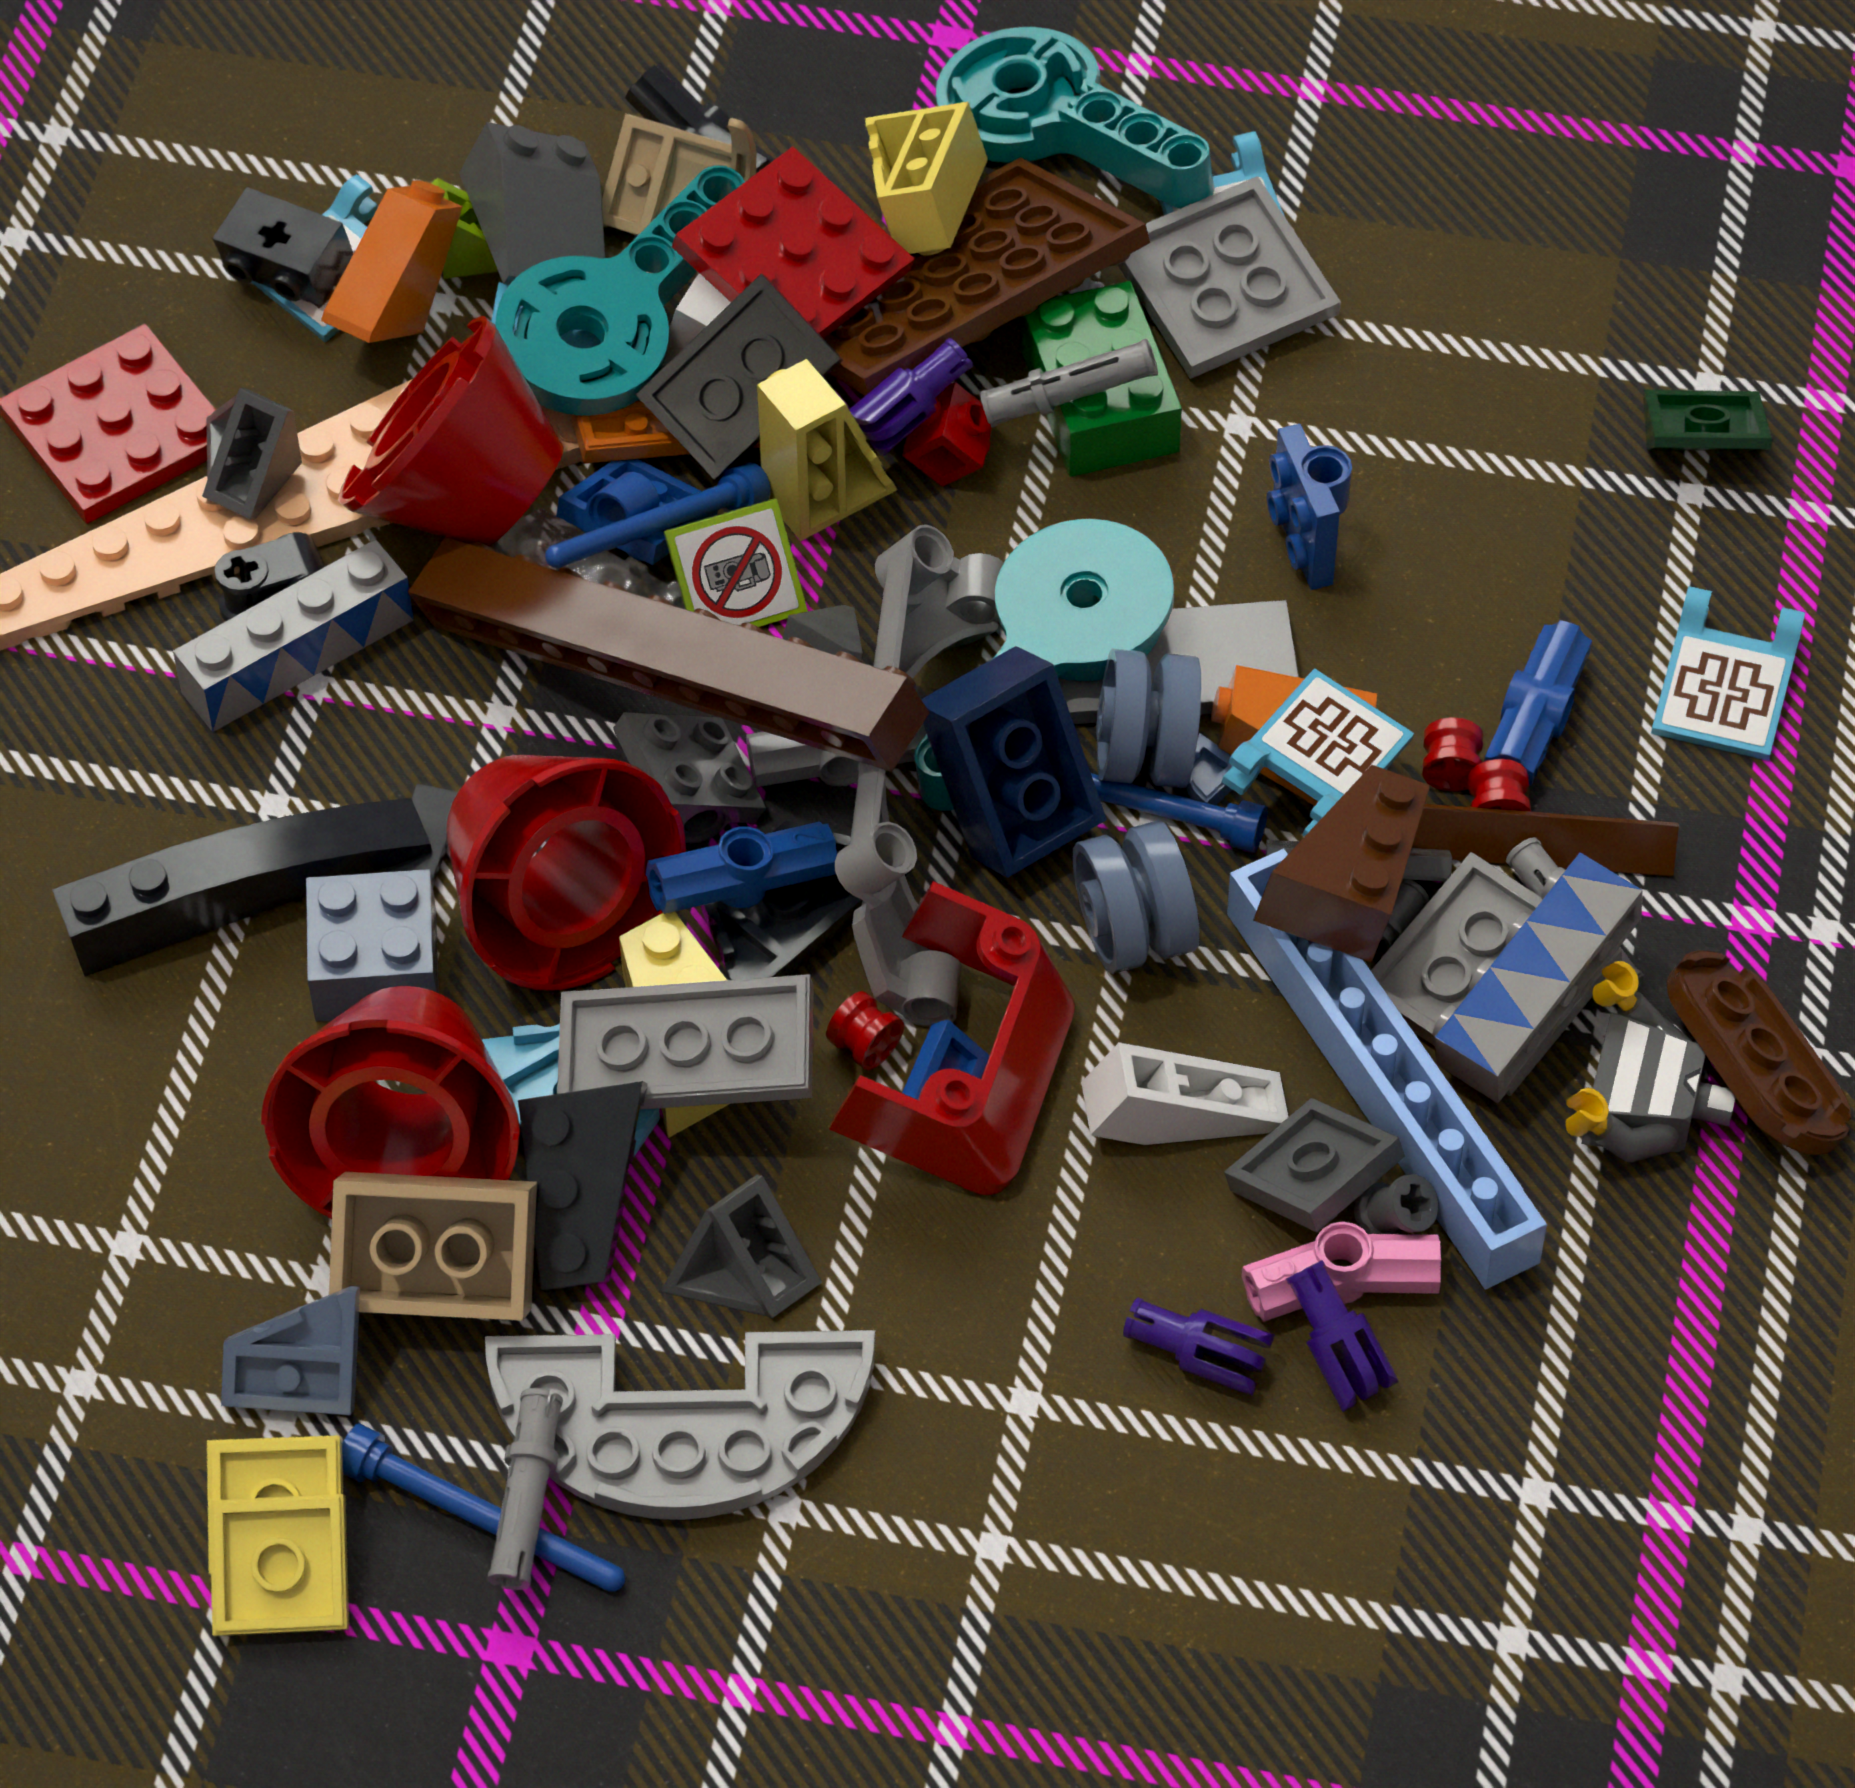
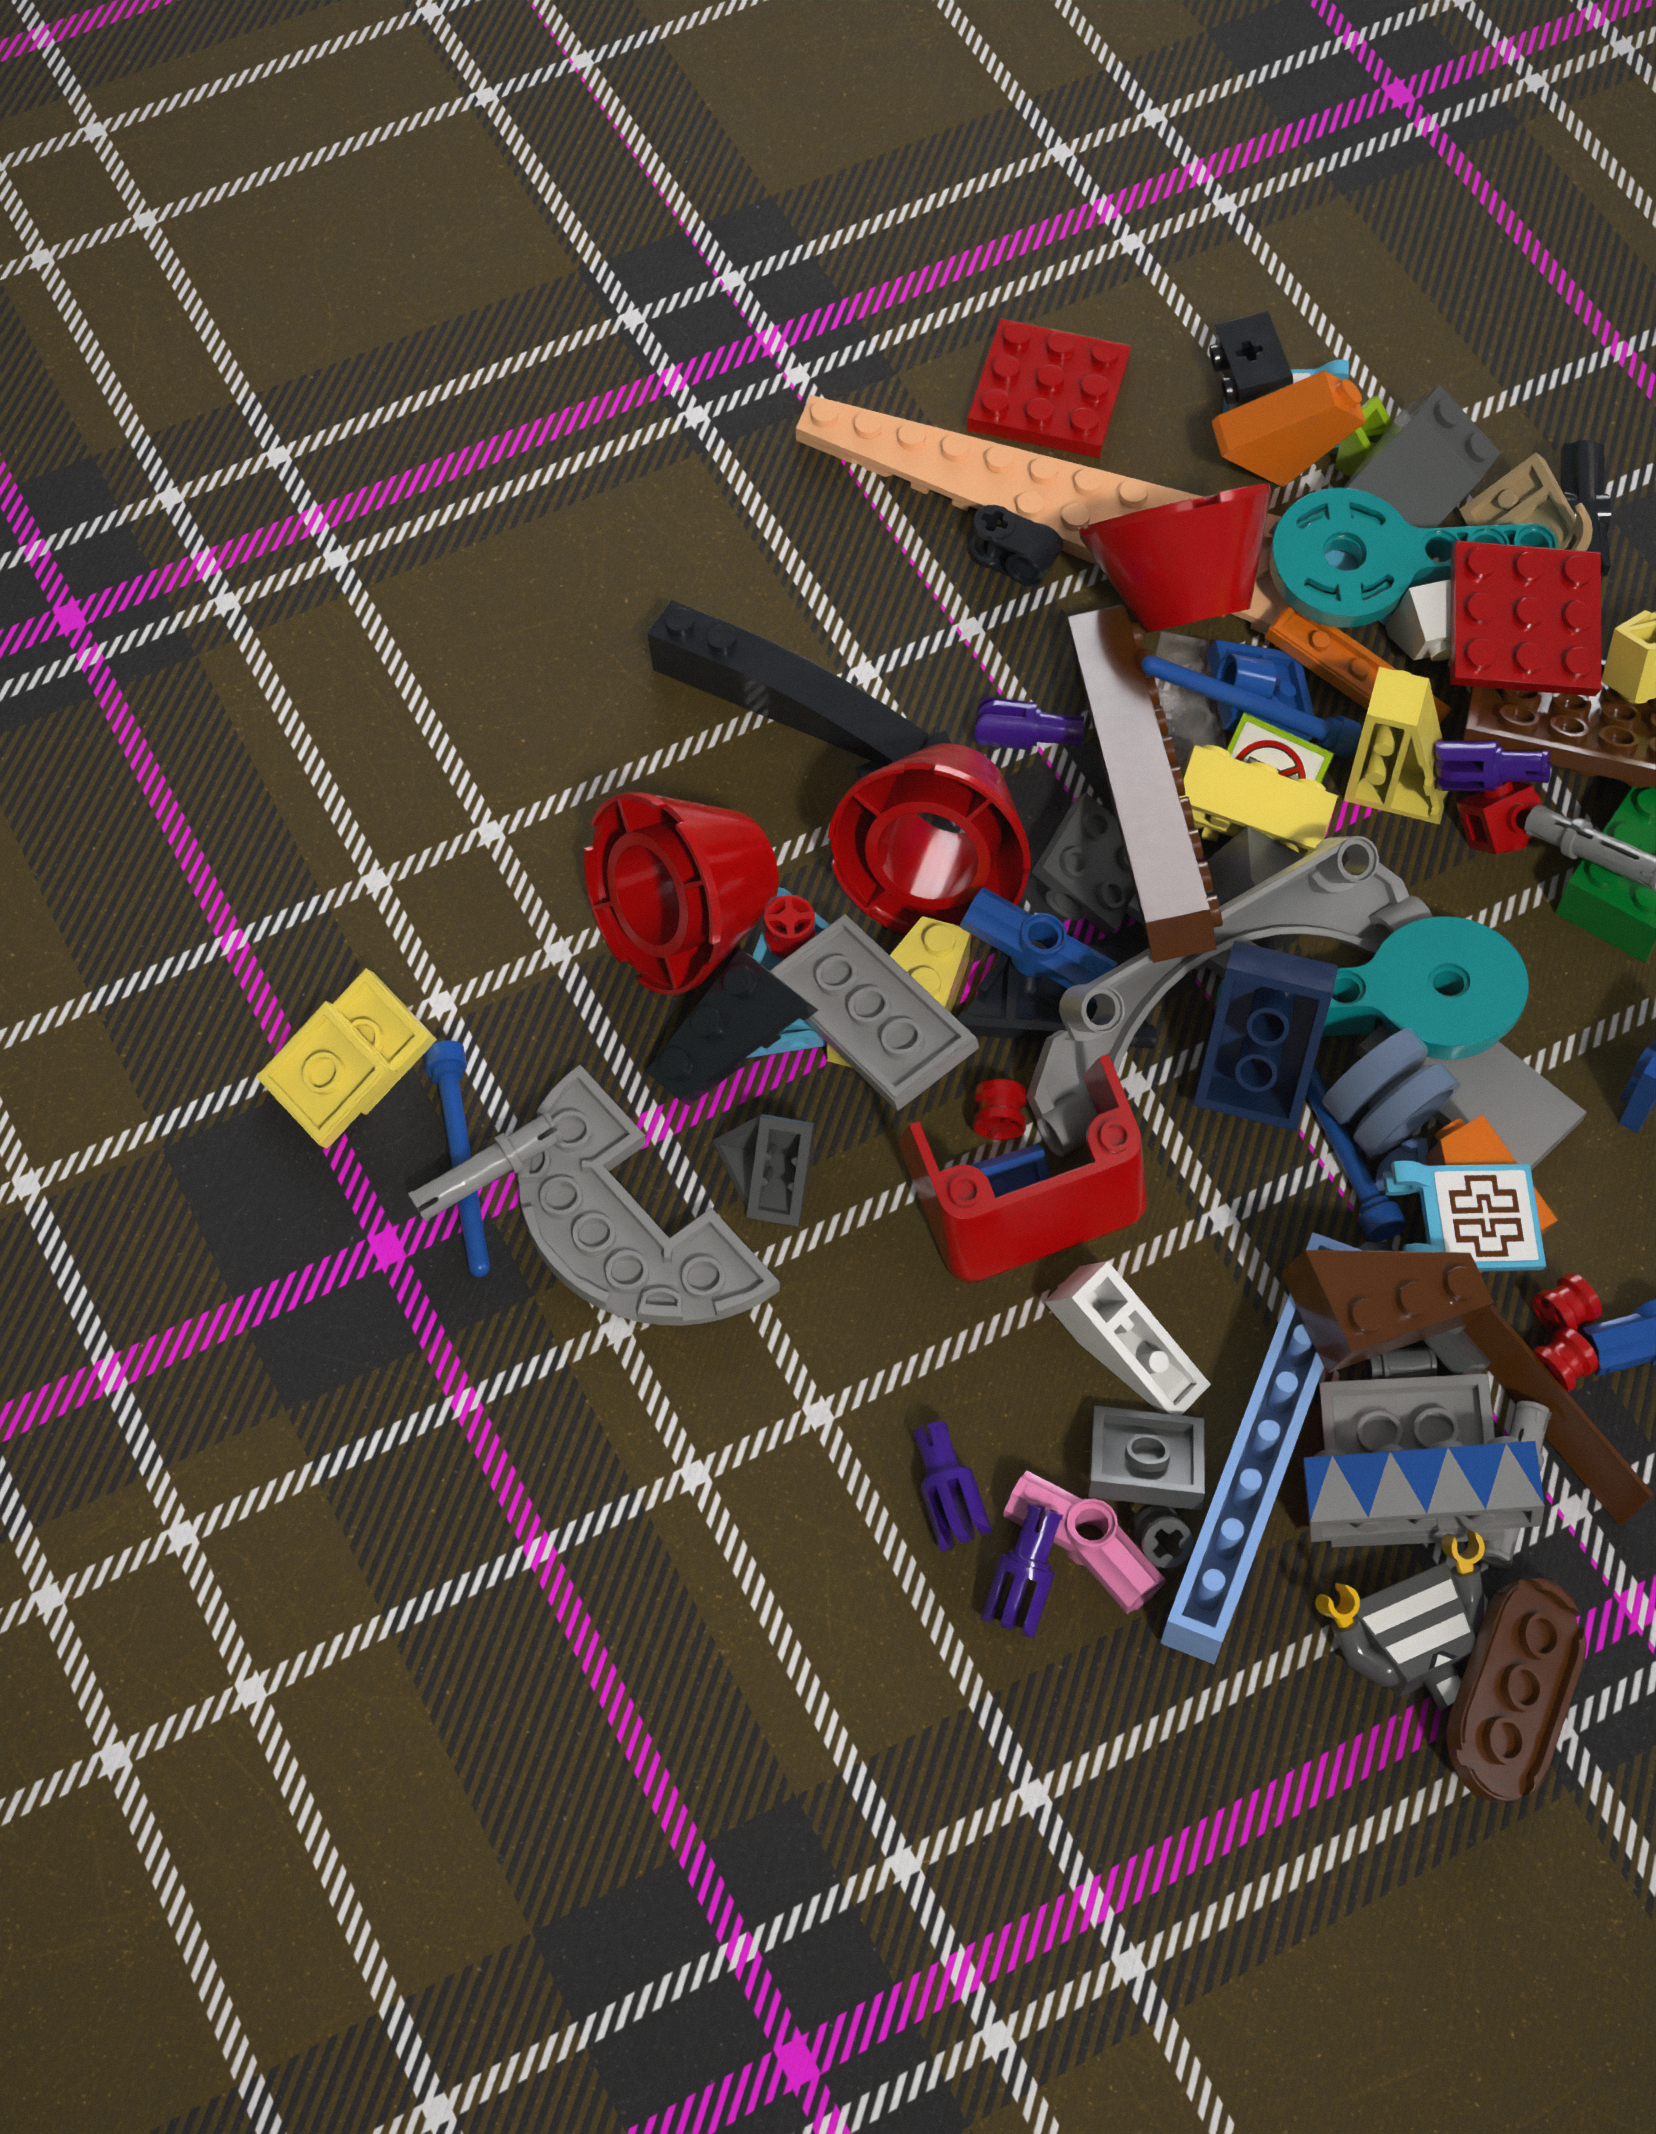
camera: 50 degrees right, 5 degrees up
(250, 452) = (1078, 465): dark grey slope -> none
(293, 635) = (982, 585): light grey brick -> none
(297, 1359) = (474, 976): sand blue wing -> none
(369, 937) = (795, 791): brick -> none
(434, 1244) = (607, 985): tan brick -> none
(478, 716) = (1023, 725): none -> dark purple arm
(515, 1037) = (789, 913): none -> red wheel
(711, 384) = (1422, 642): black plate -> none
(767, 587) = (1236, 794): none -> light yellow wedge
(1136, 896) = (1241, 1190): sand blue wheel -> none

